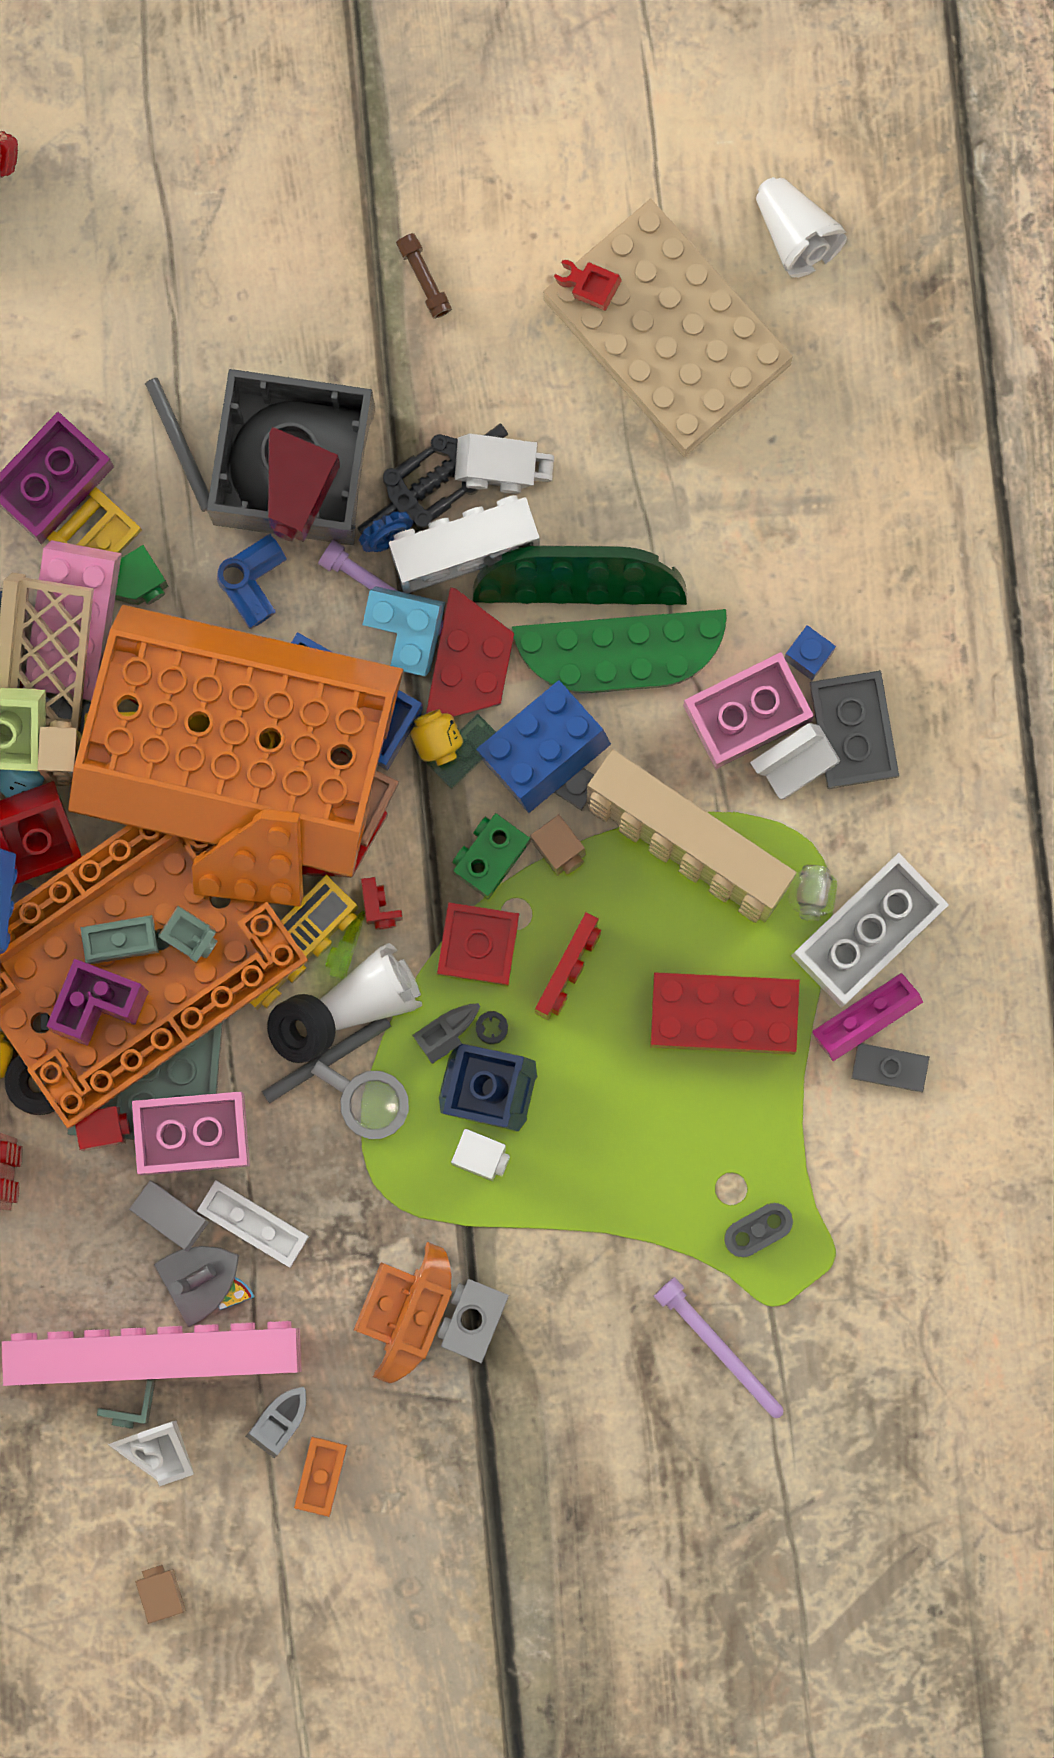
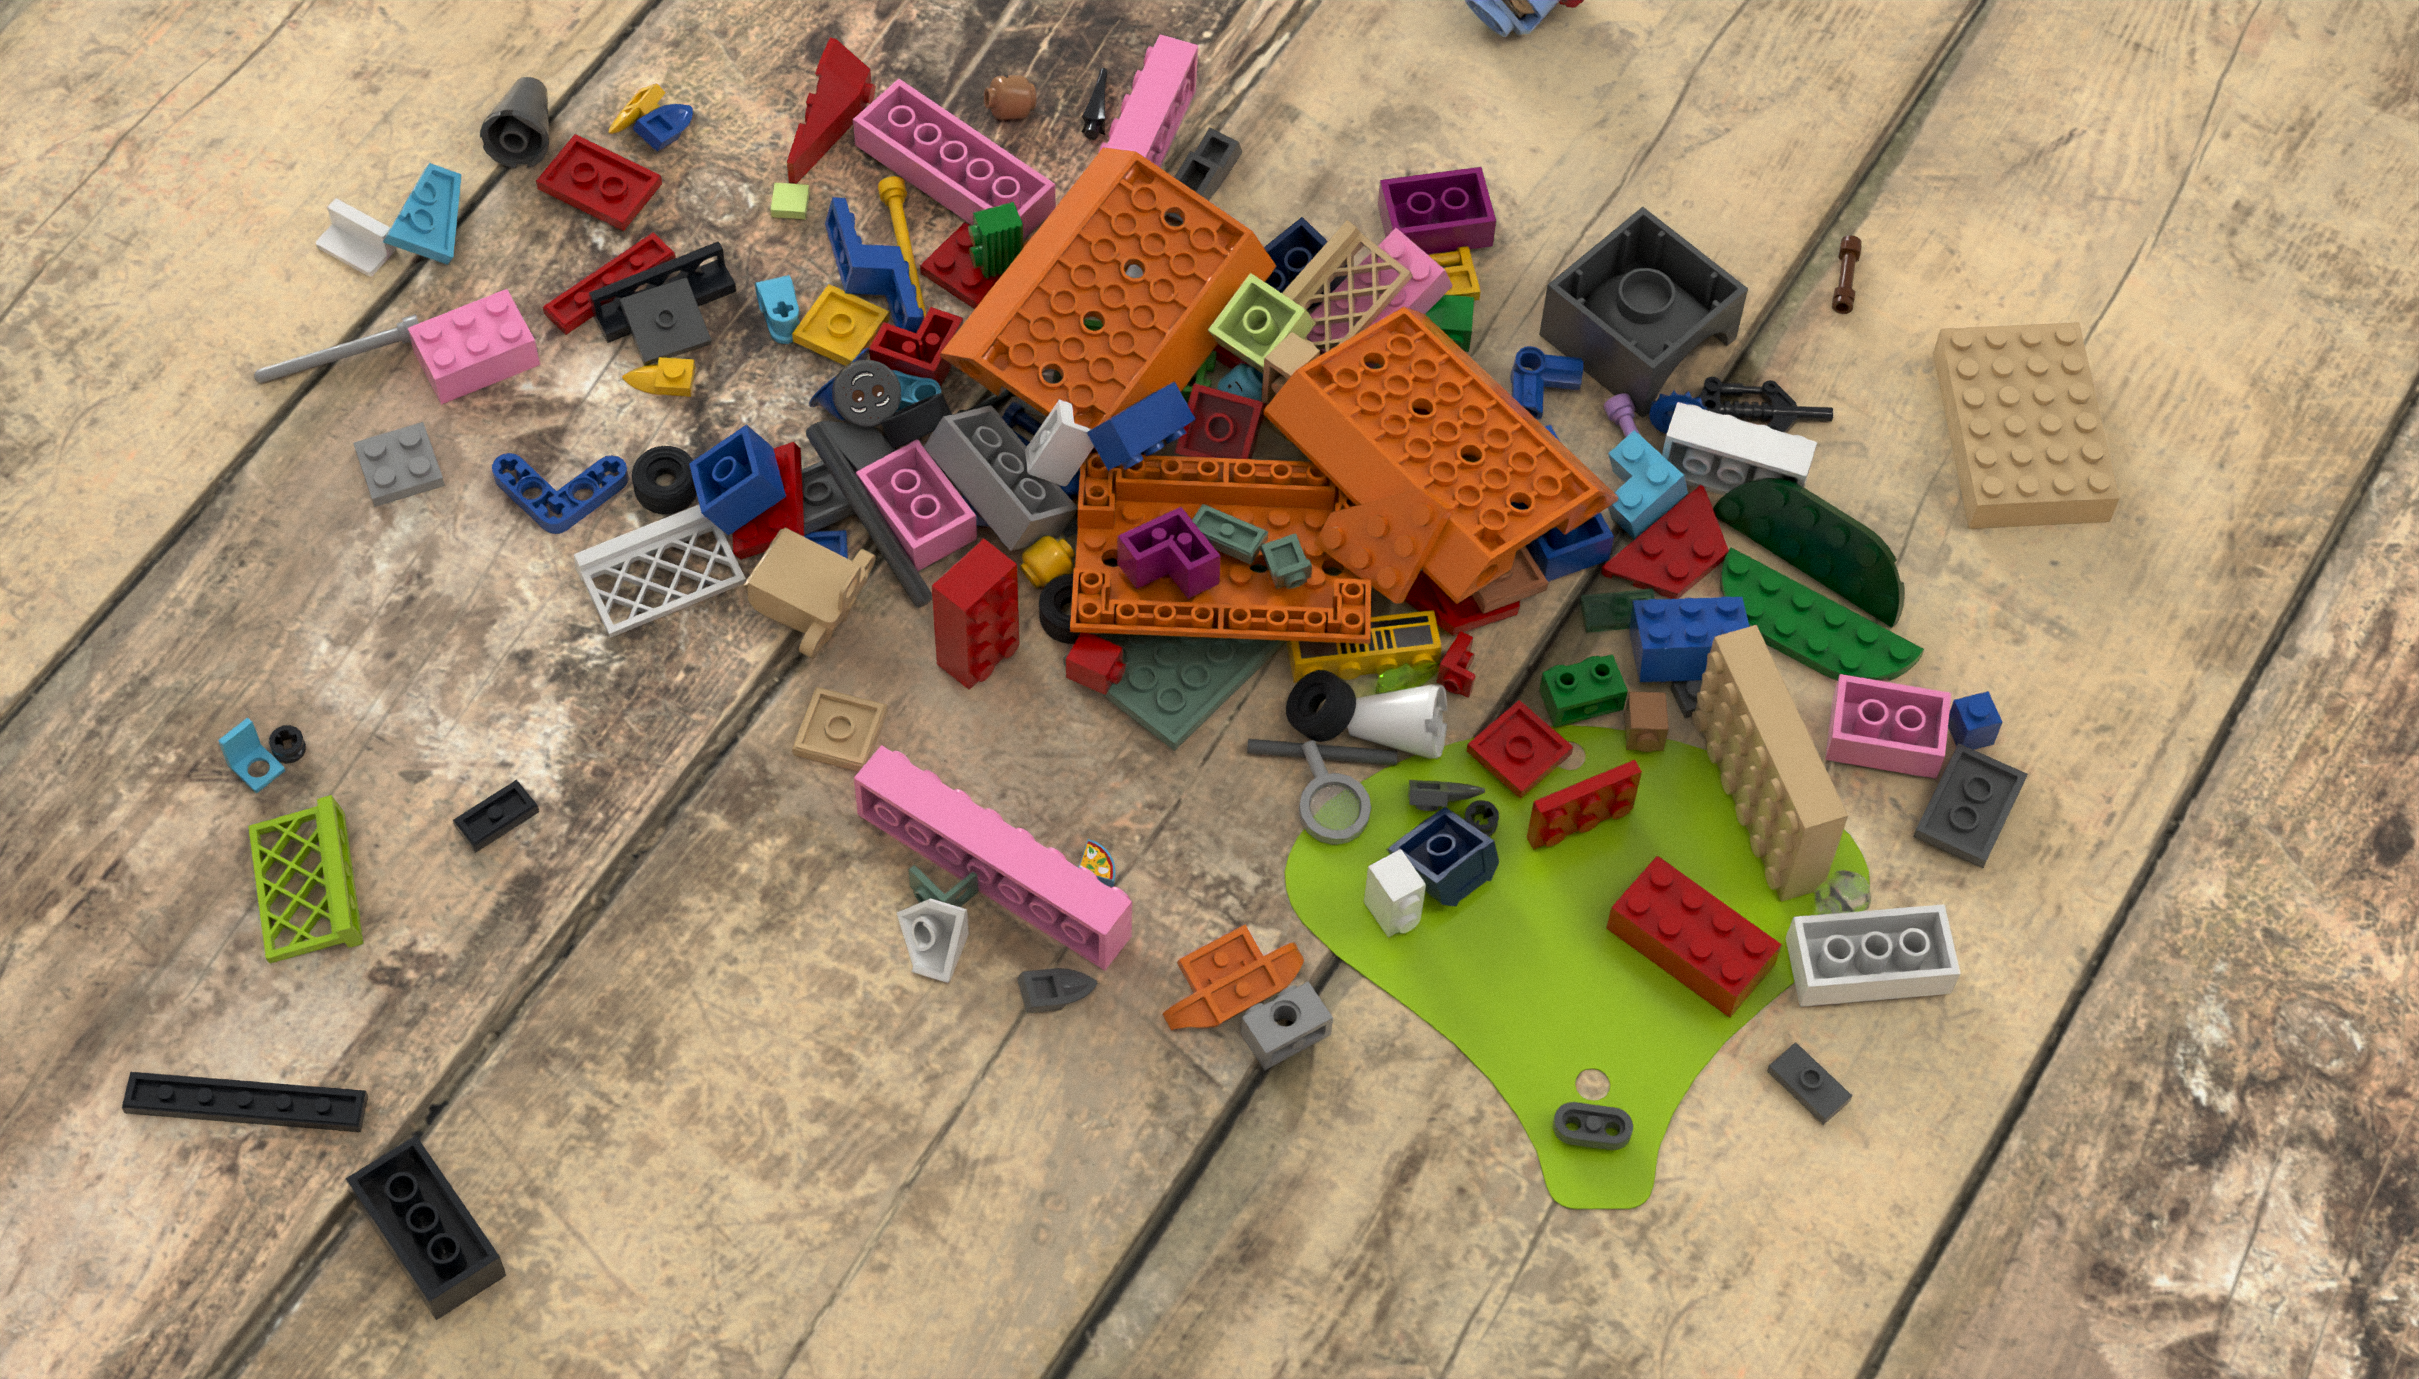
camera: 30 degrees right, 25 degrees down
(160, 1594) = (840, 1049): medium nougat brick -> none
(169, 1215) = (1095, 773): light grey tile -> none
(178, 441) = (1560, 249): dark grey bar -> none
(190, 1133) = (1166, 711): bright pink brick -> none
(198, 1279) = (1082, 833): flat silver shield -> none
(253, 1223) = (1159, 827): white plate -> none
(297, 483) = (1637, 305): dark red slope -> none
(320, 1476) = (1053, 1055): orange plate -> none
(436, 737) = (1605, 573): yellow head -> none
(501, 463) = (1810, 415): white brick -> none
(592, 285) = (1983, 339): red plate -> none
(673, 1297) = (1475, 1127): lavender piece -> none
(796, 760) = (1902, 788): white panel -> none
(798, 227) = (2190, 426): white cone -> none
(867, 1016) = (1819, 1026): dark pink plate -> none

